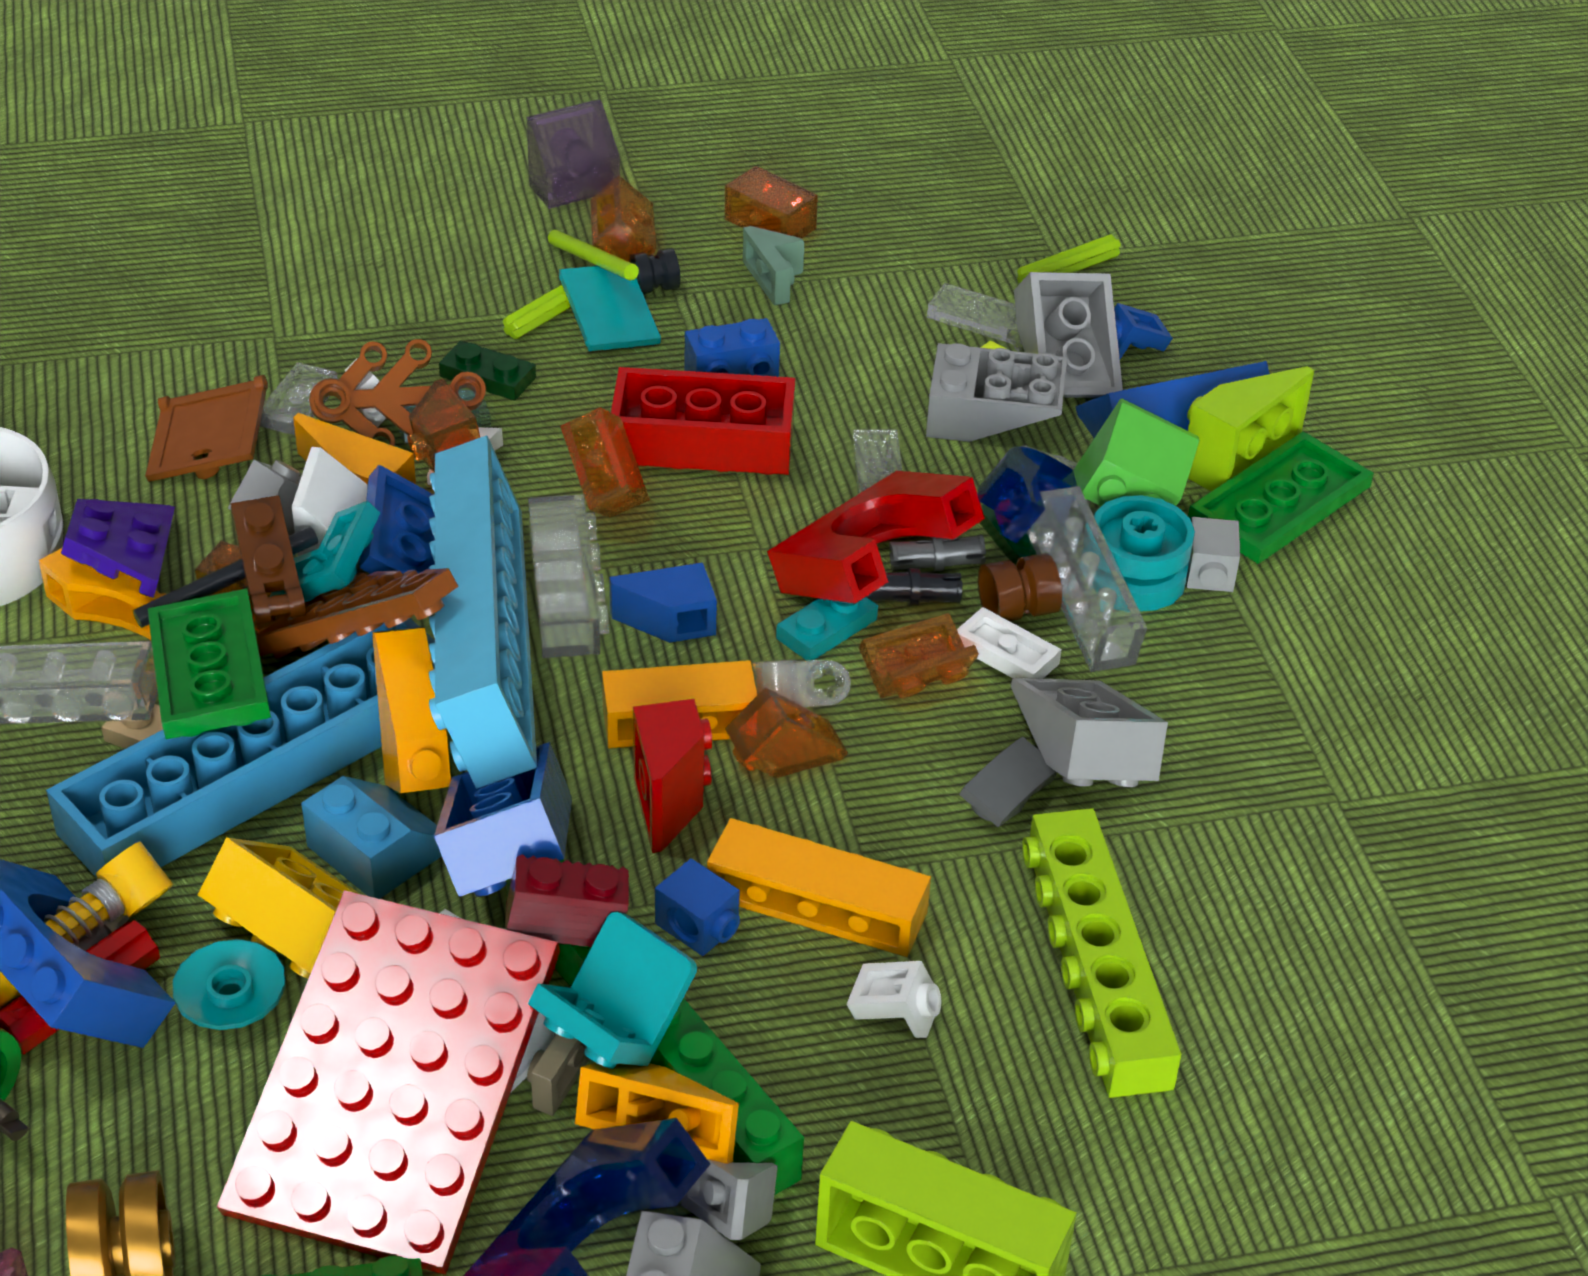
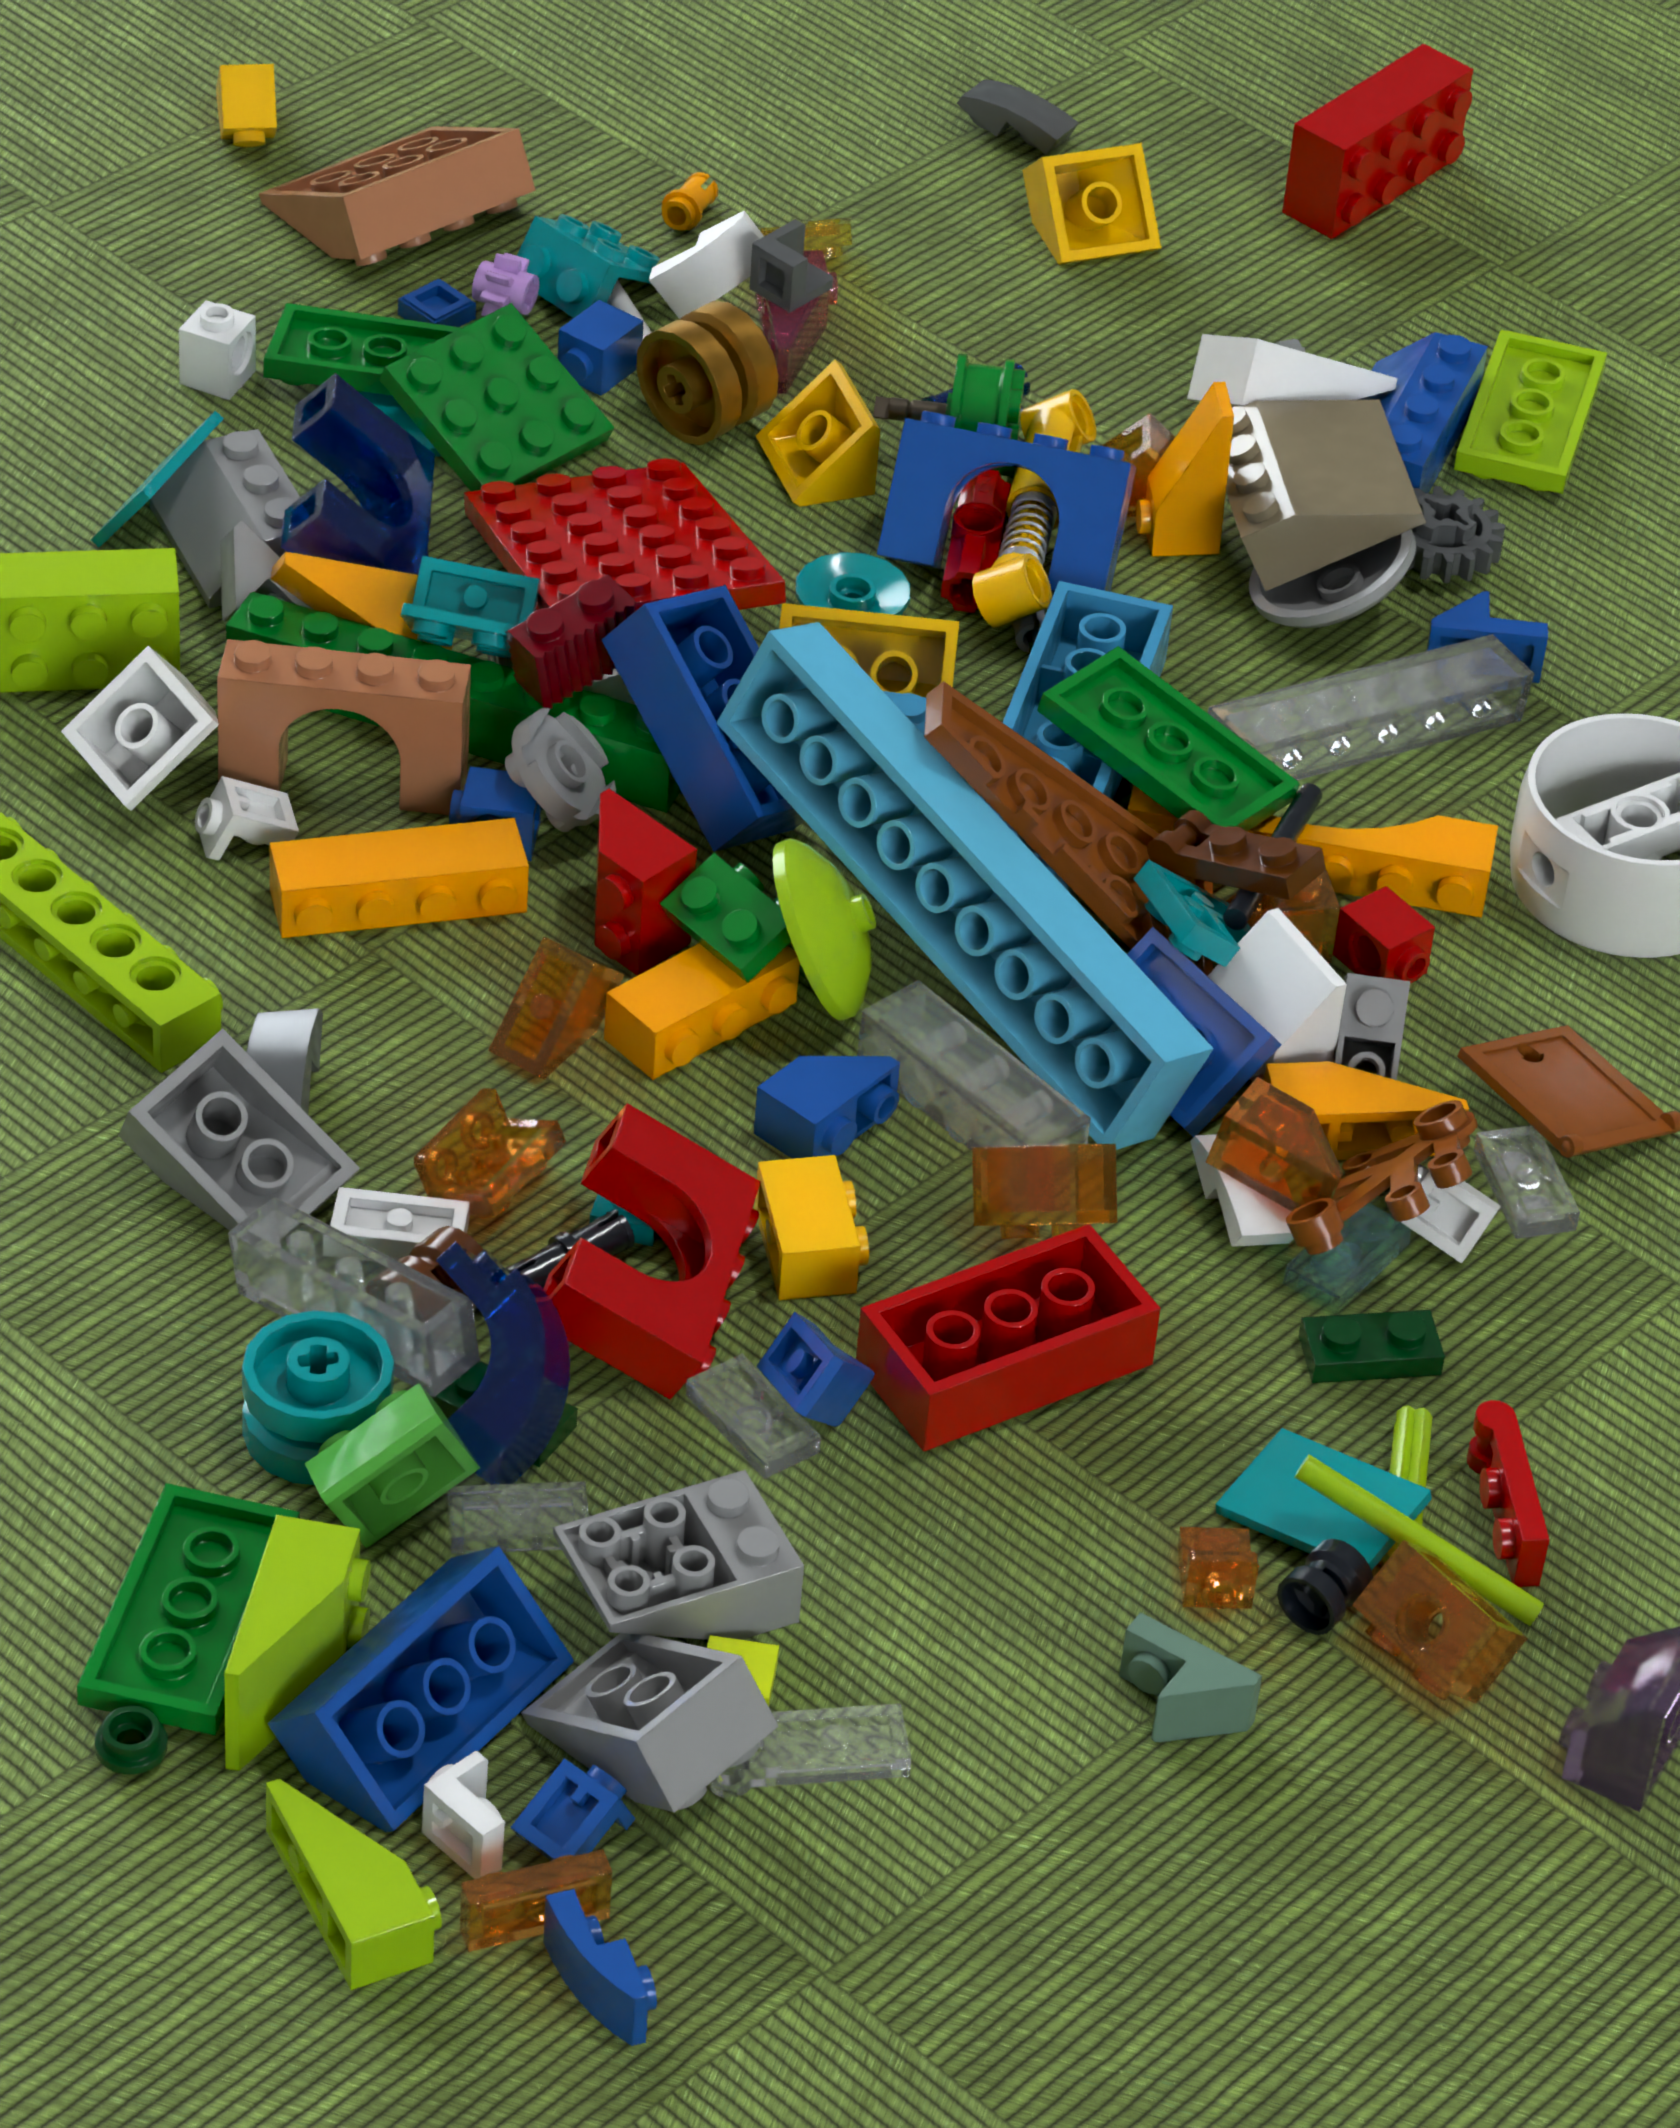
camera: 145 degrees right, 0 degrees up
(78, 1139) = (824, 441): none -> yellow slope
(120, 538) = (1452, 872): dark purple wing -> none
(188, 544) = (1383, 937): none -> red brick
(510, 269) = (1509, 1491): none -> red plate
(575, 649) = (825, 926): none -> lime dish
(615, 682) = (730, 916): none -> green bracket
(655, 866) = (559, 767): none -> light grey plate
(700, 304) = (1217, 1567): none -> clear orange bracket
(733, 349) = (1073, 1472): blue brick -> none
(745, 535) = (810, 1227): none -> yellow brick
(770, 204) = (1291, 1797): clear orange brick -> none
(796, 680) = (583, 1061): clear piece -> none
(835, 444) = (814, 1373): none -> blue slope
(839, 995) = (414, 700): none -> nougat arch
(944, 1056) = (141, 727): none -> white slope
(1075, 258) = (776, 1939): lime axle -> none
(1172, 270) = (598, 1972): none -> blue slope
(1184, 304) = (512, 1903): none -> clear orange plate
(1194, 348) = (462, 1818): none -> white bracket
(1214, 555) = (228, 1452): light grey brick -> none
(1271, 331) = (353, 1888): none -> lime slope
(1355, 447) = (131, 1741): none -> dark green plate

